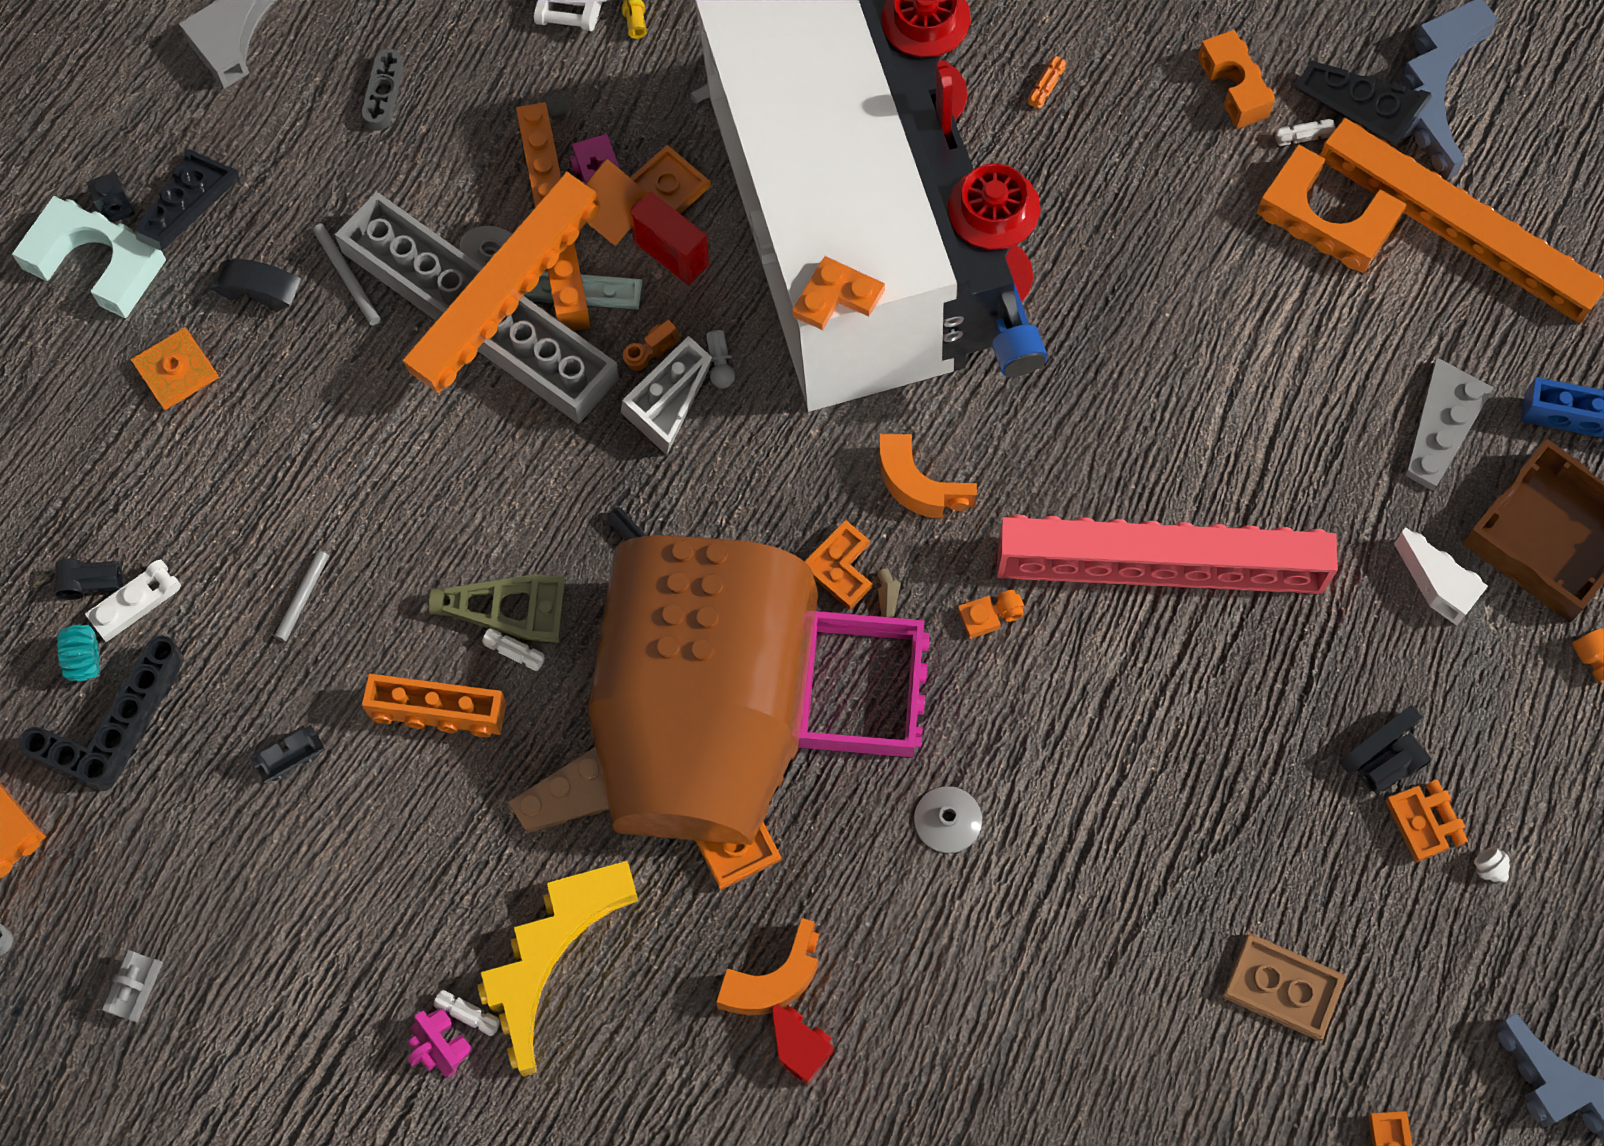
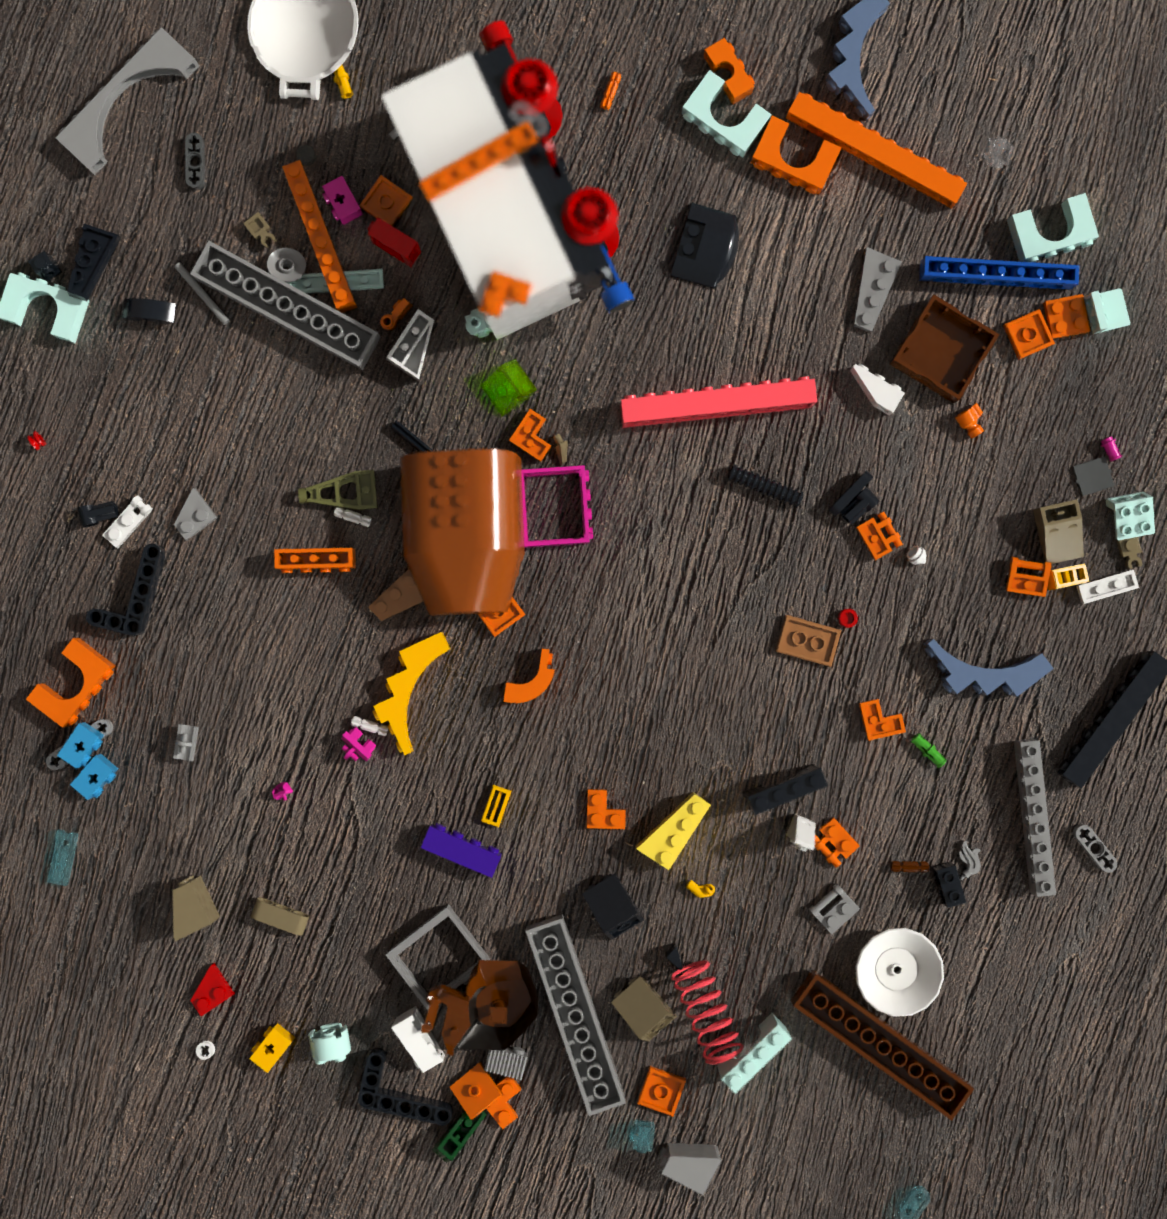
camera: 15 degrees left, 20 degrees up
(20, 450) = (36, 440): none -> red bush
(78, 653) = (105, 561): teal gear -> none
(175, 368) = (113, 372): orange plate -> none
(246, 608) = (194, 515): none -> light grey wing
(276, 763) = (245, 594): black hinge -> none
(281, 1107) = (281, 790): none -> dark pink piece
(301, 596) = (224, 503): light grey bar -> none
(460, 194) = (258, 228): none -> dark tan plate
(502, 283) = (300, 293): orange brick -> none
(616, 197) = (352, 222): orange tile -> none
(722, 374) = (442, 324): light grey axle -> none
(783, 376) = (477, 324): none -> light aqua brick
(799, 1047) = (551, 717): red slope -> none
(815, 482) = (508, 387): none -> clear neon green slope
(829, 98) = (479, 161): none -> orange plate
(912, 487) = (563, 380): orange arch -> none
(920, 54) = (529, 114): none -> clear plate
(945, 835) = (604, 579): light grey dish -> none
(982, 617) = (617, 454): orange plate -> none
(1172, 322) = (706, 246): none -> black slope
(1233, 705) = (765, 485): none -> black piece
(1240, 171) = (736, 138): none -> light aqua arch
(1304, 132) = (777, 101): white axle -> none
(1359, 957) = (847, 618): none -> red tile
(1375, 105) = (813, 77): black wing -> none

